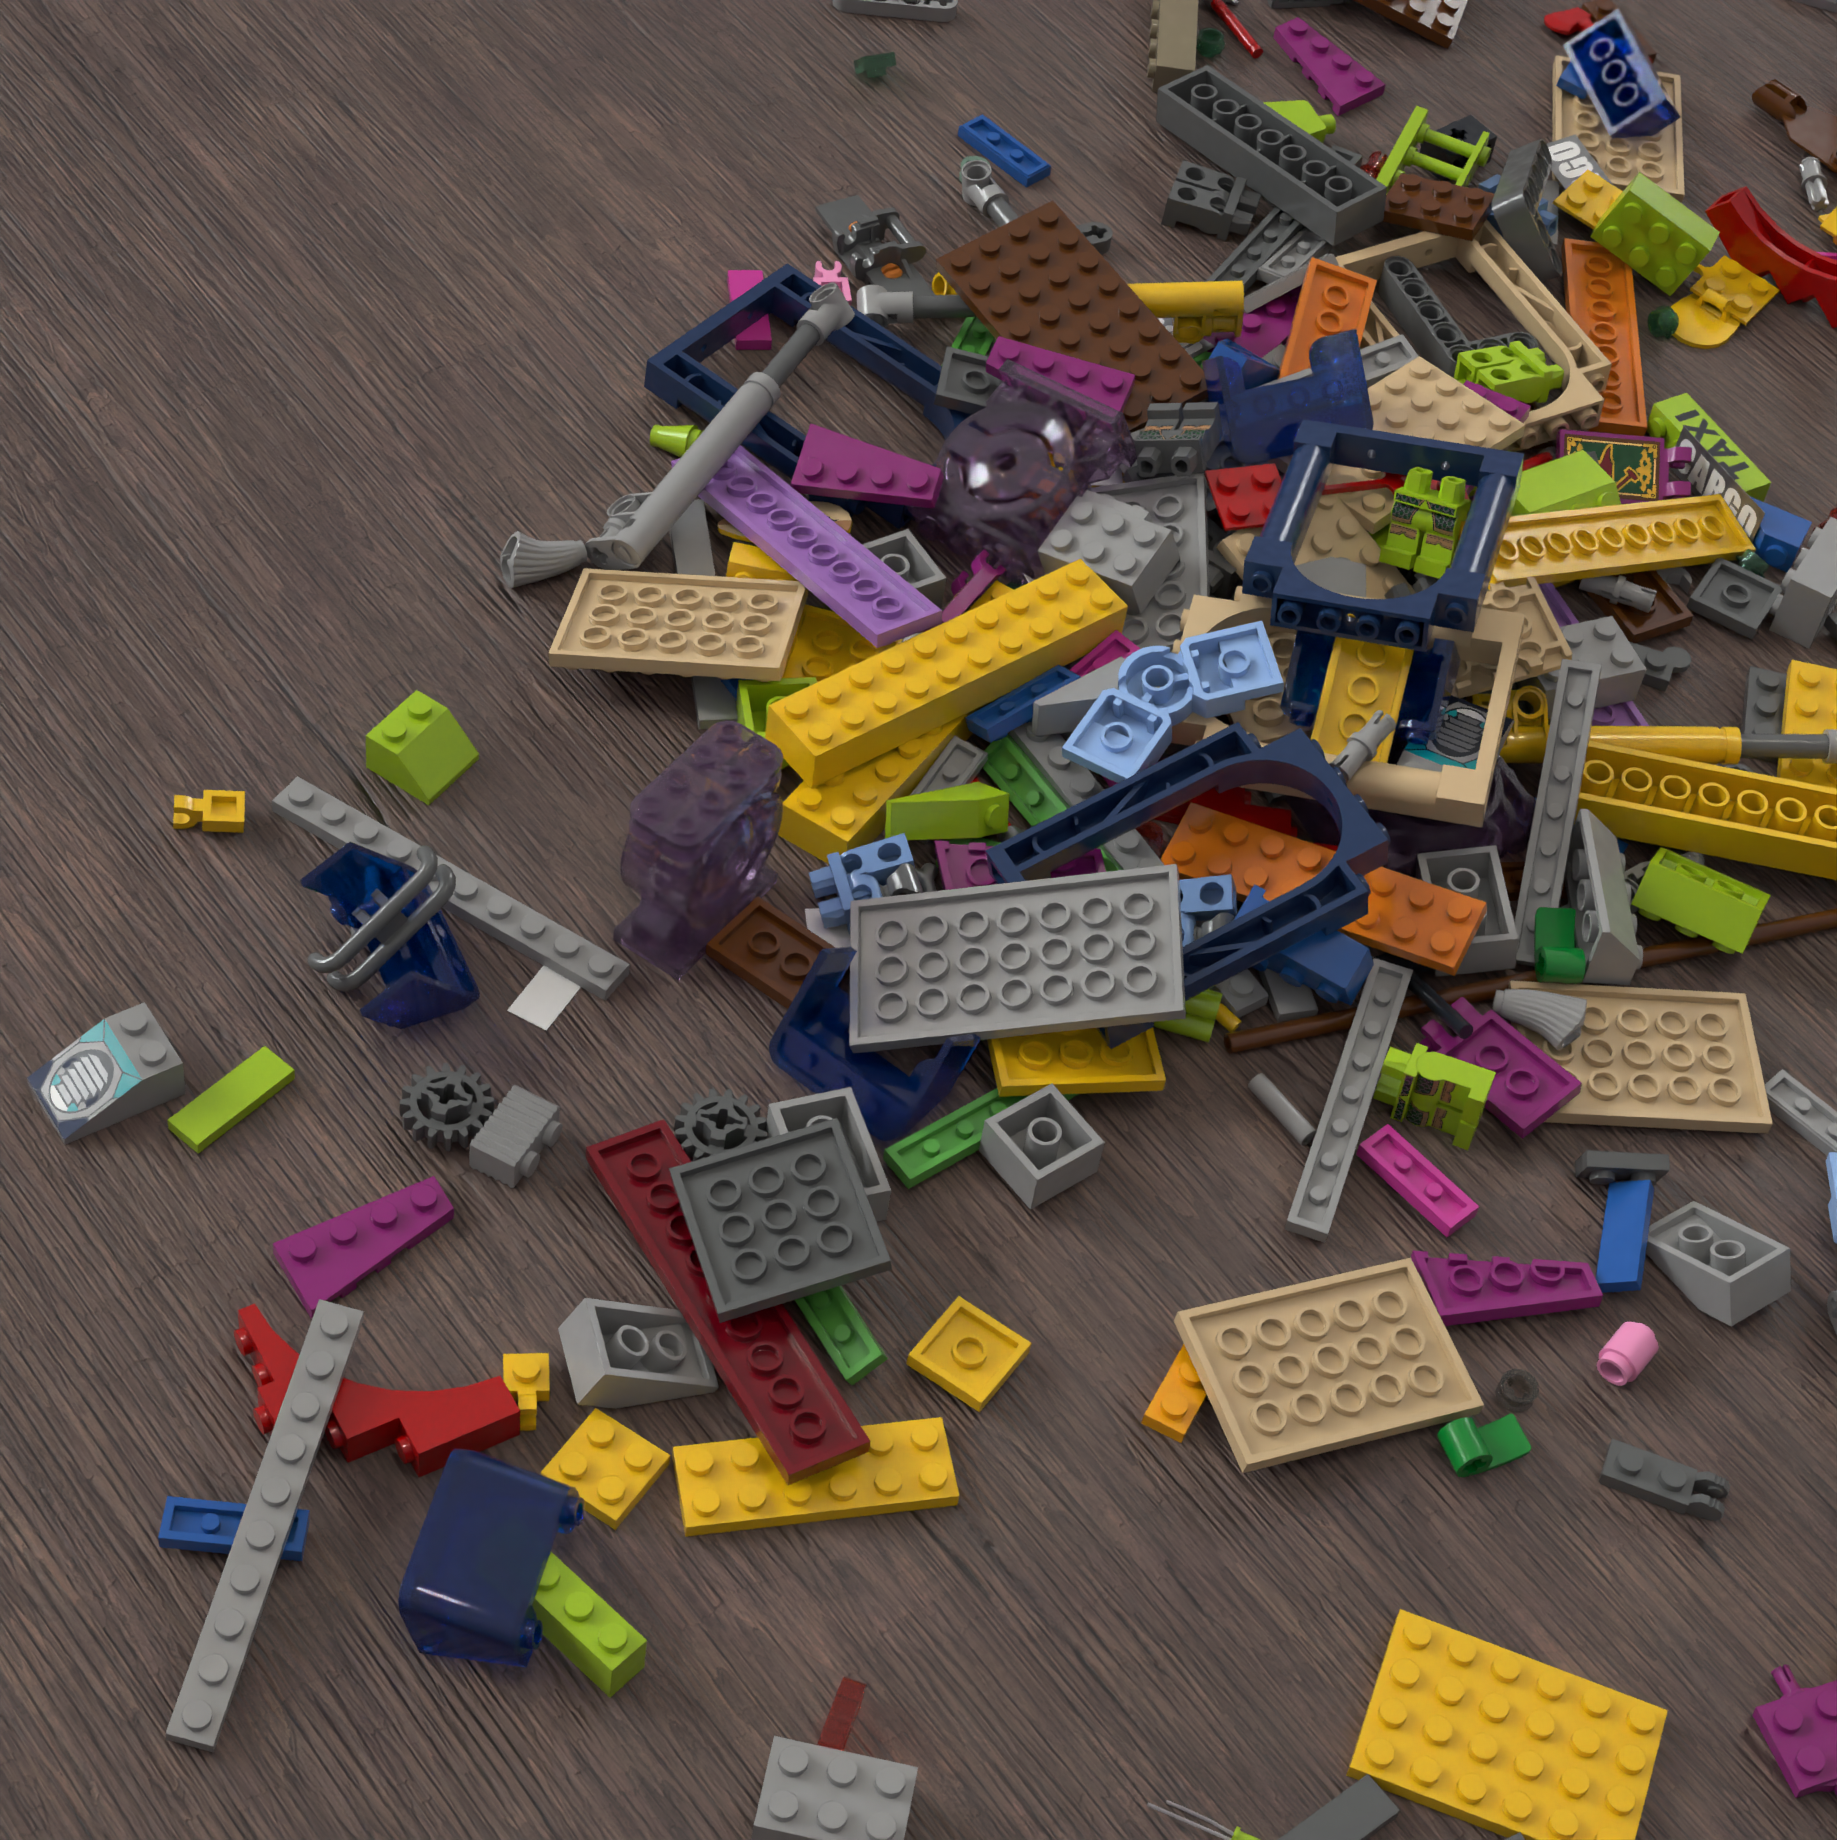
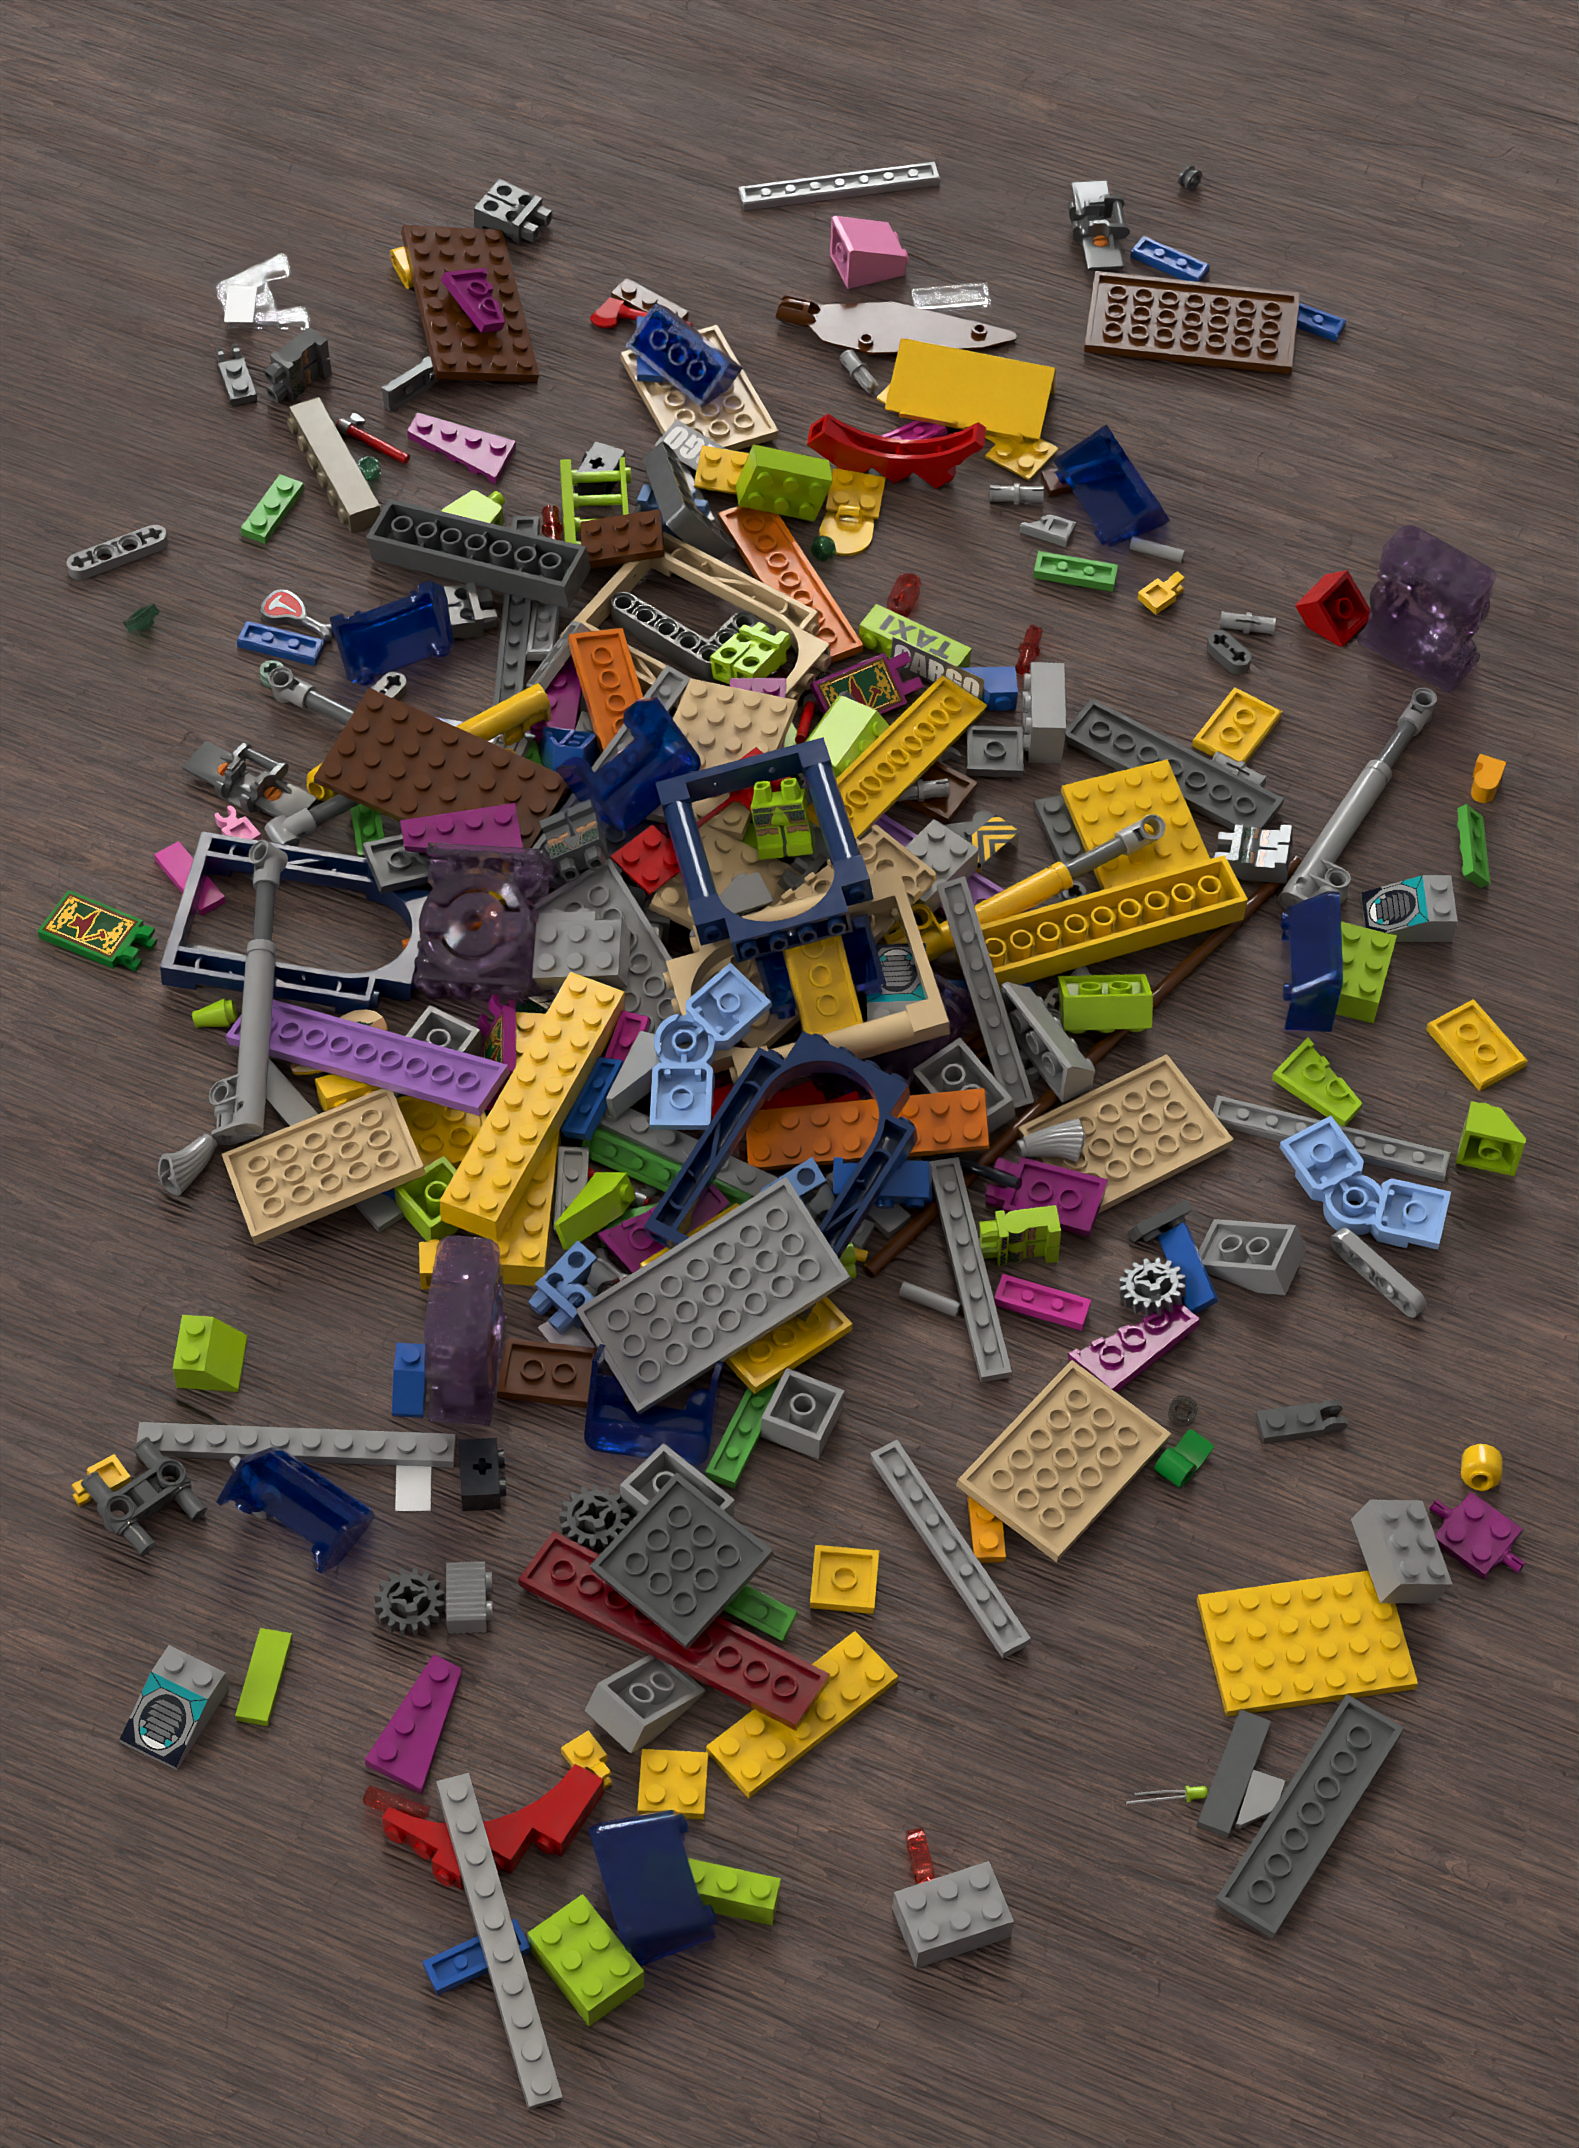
camera: 25 degrees left, 5 degrees up
(241, 847) = (144, 1496): none -> dark grey piece
(254, 1290) = (383, 1800): none -> clear red axle
(354, 1604) = (586, 1960): none -> lime brick
(388, 924) = (292, 1500): dark grey piece -> none
(607, 897) = (409, 1381): none -> blue slope
(614, 310) = (97, 931): none -> tile
(625, 1018) = (478, 1490): none -> black brick
(860, 471) = (363, 980): magenta wing -> none
(1035, 124) = (286, 608): none -> flat silver piece
(1083, 34) = (272, 509): none -> bright green plate
(1121, 1393) = (950, 1549): none -> light grey plate
(1127, 184) = (394, 634): none -> clear blue windscreen
(1363, 744) = (847, 1019): light grey pin -> none
(1554, 947) = (1035, 1092): green panel -> none
(1565, 1231) = (1152, 1287): none -> dark grey gear
(1627, 1353) = (1234, 1348): bright pink brick -> none
(1672, 674) = (992, 837): none -> sticker
(1699, 1699) = (1401, 1551): none -> light grey brick
(1734, 403) = (908, 597): none -> clear red beam
(1752, 563) = (991, 718): clear green plate -> none

